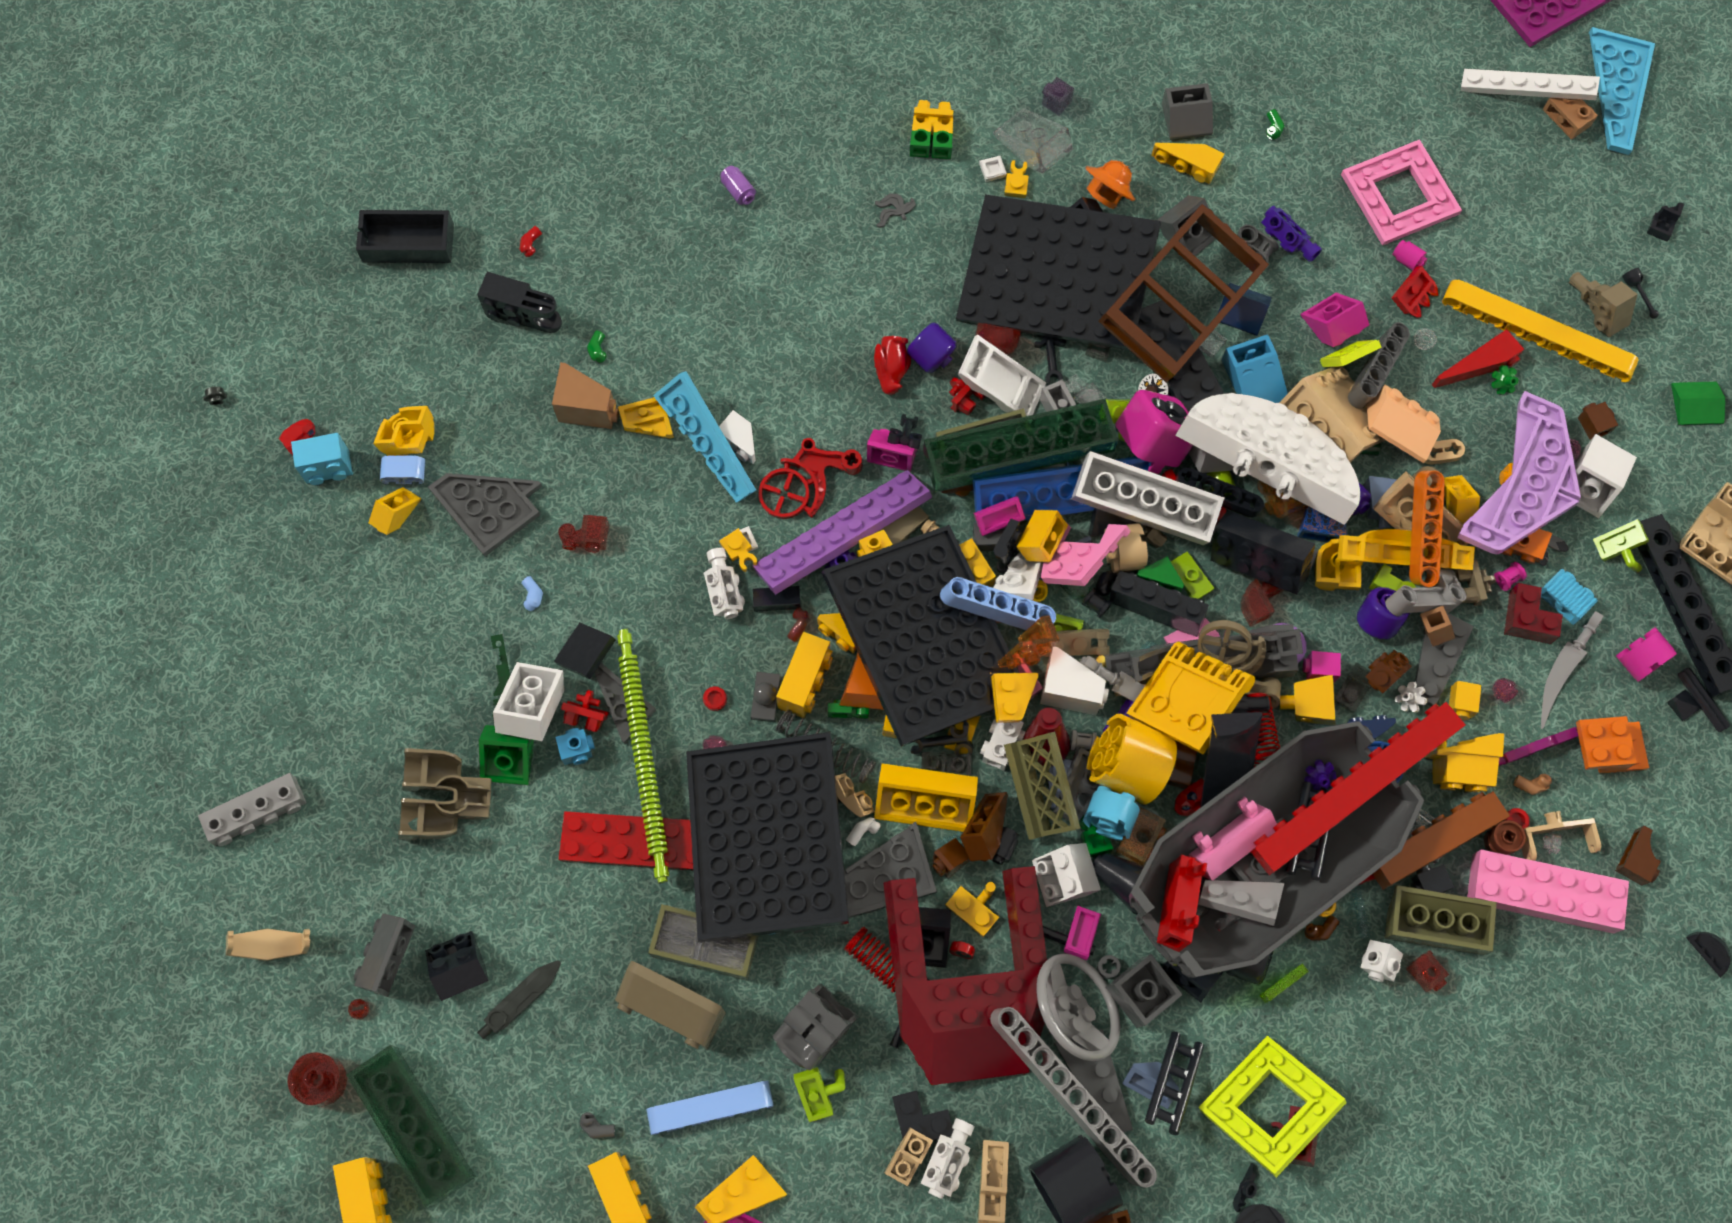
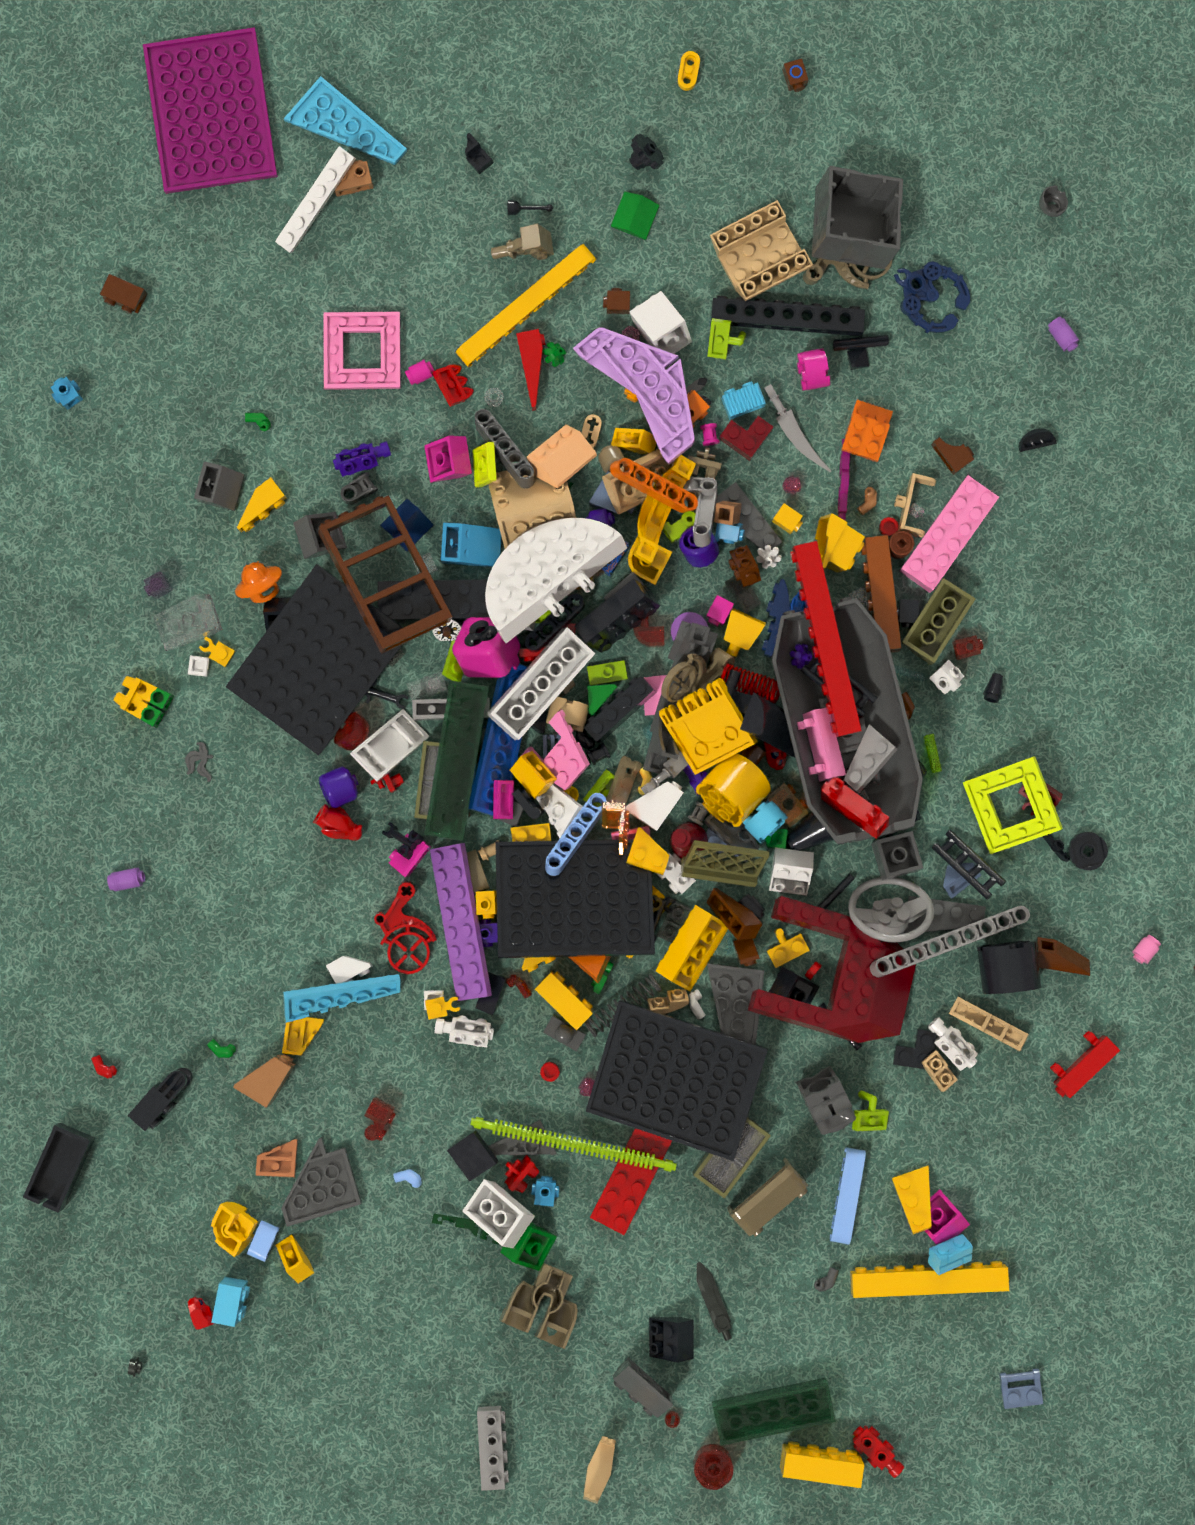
camera: 65 degrees left, 15 degrees up
(497, 452) = (278, 1161): none -> nougat wing
(852, 943) = (777, 1047): red piece -> none
(1082, 933) = (837, 879): dark pink tile -> none
(1103, 961) = (874, 869): dark grey bush -> none
(1395, 1026) = (993, 690): none -> black cone
(1415, 639) = (729, 533): none -> dark azure brick

